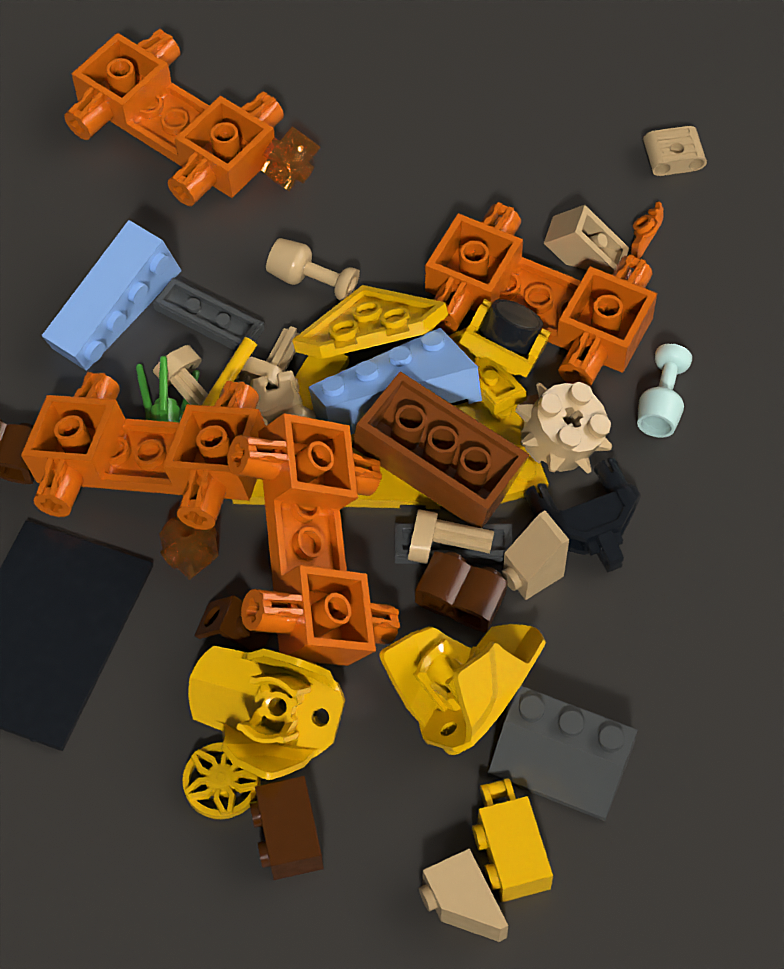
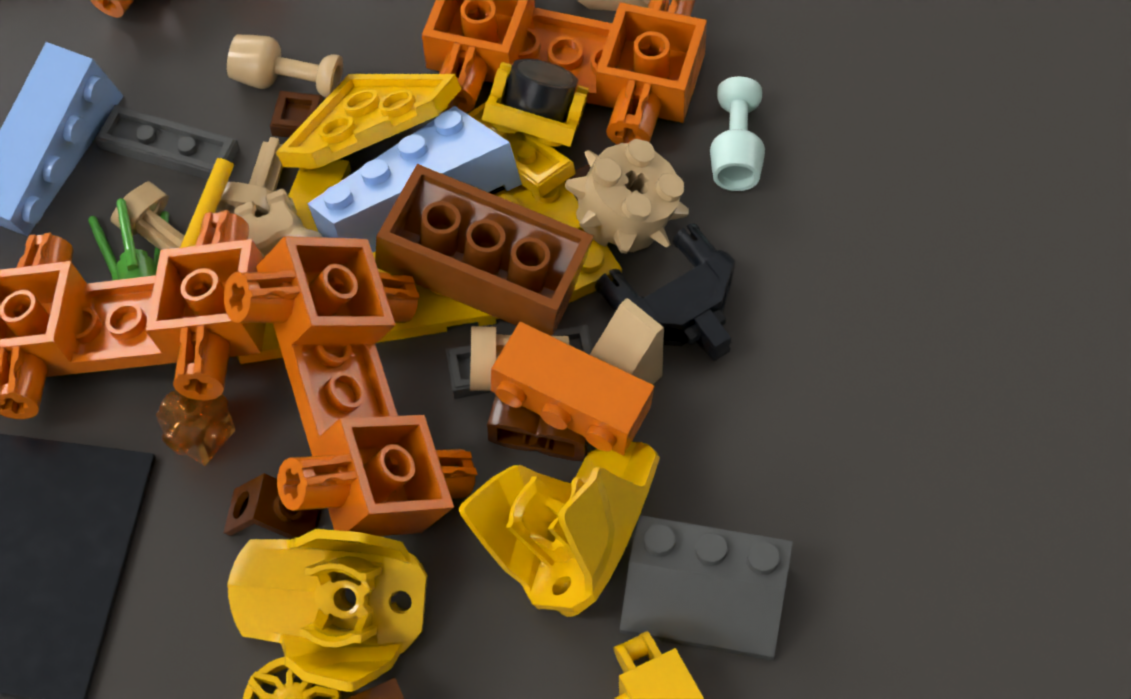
camera: 10 degrees left, 0 degrees up
(312, 307) = (292, 111): none -> reddish brown tile
(486, 575) = (571, 389): none -> orange brick

